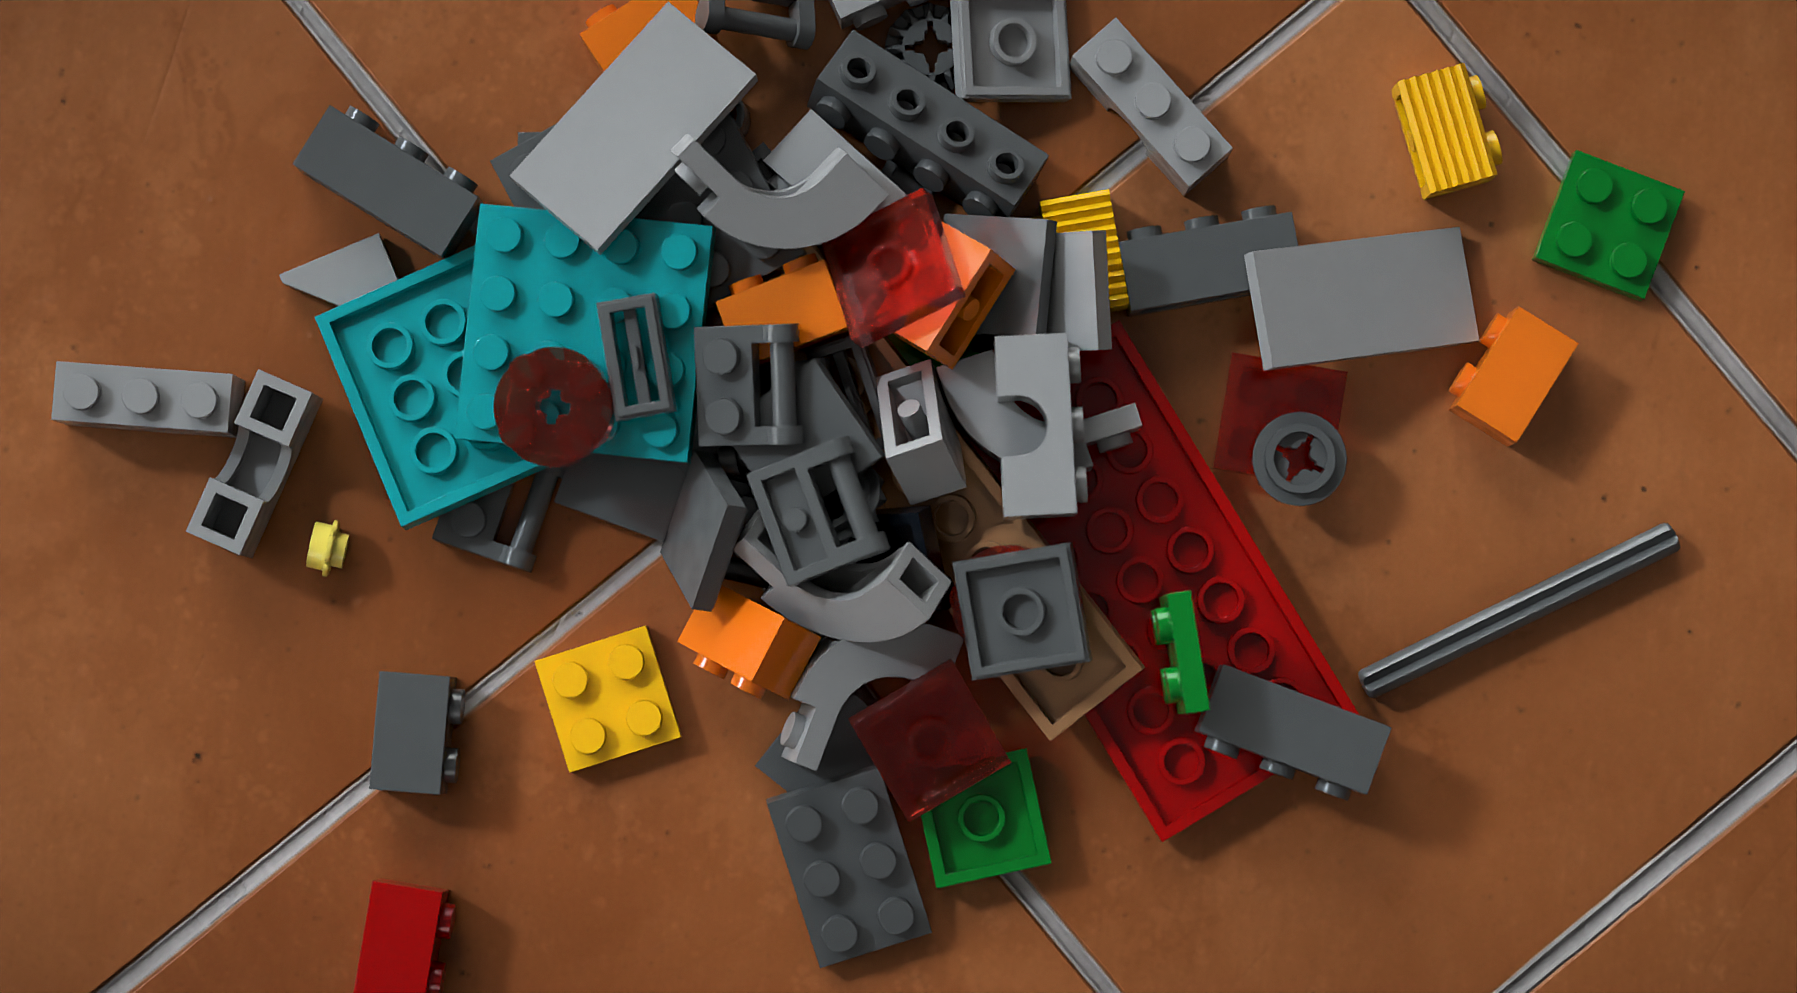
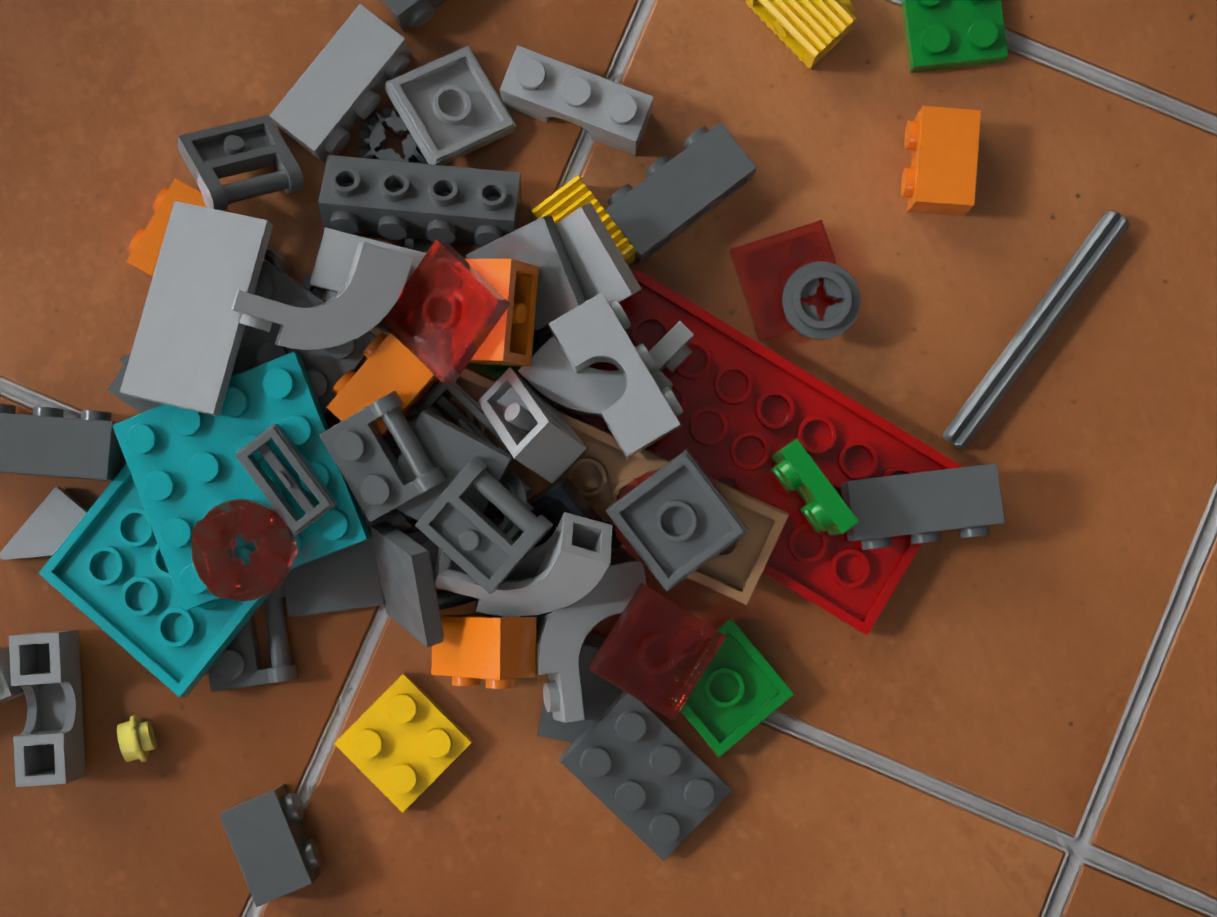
camera: 25 degrees left, 0 degrees up
(1361, 298) = (803, 160): light grey tile -> none

